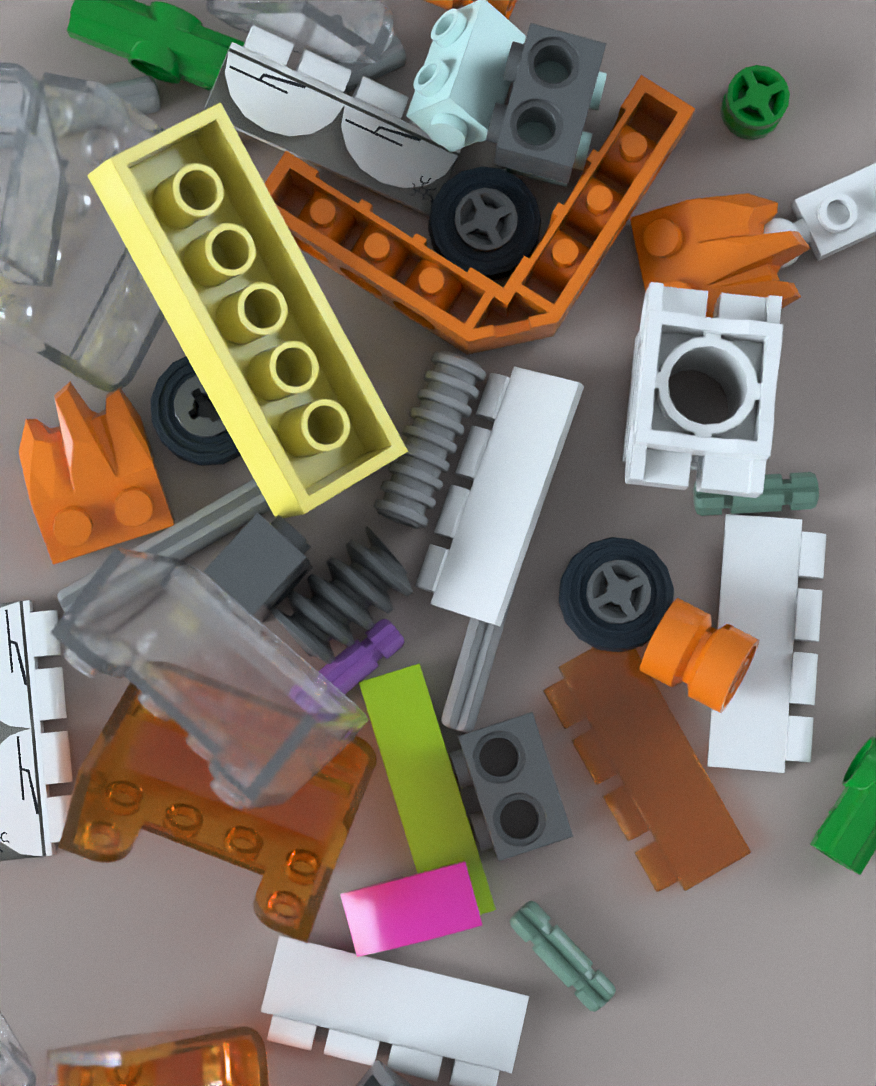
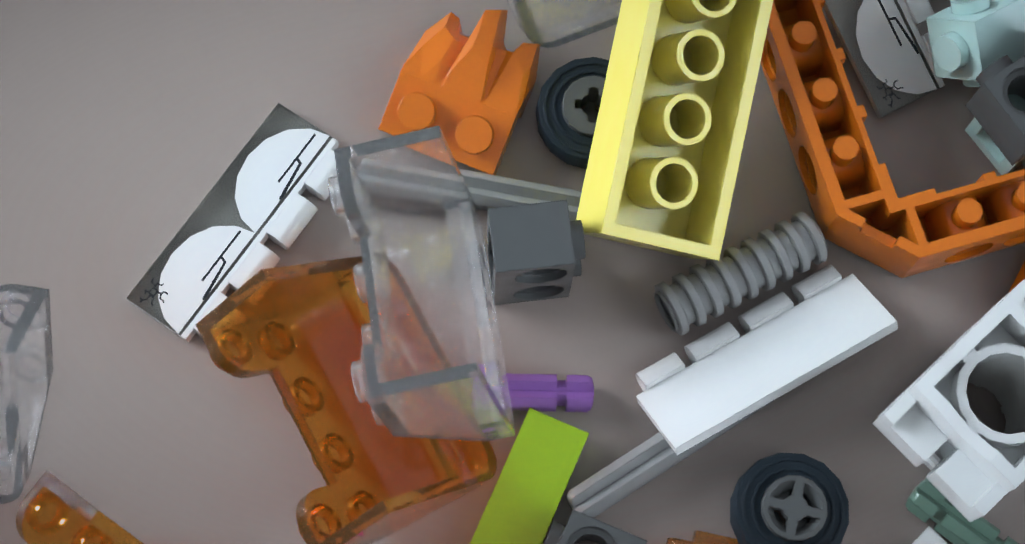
camera: 40 degrees right, 10 degrees down
(344, 598) = (575, 333): dark grey piece -> none
(494, 198) = (929, 131): black wheel -> none

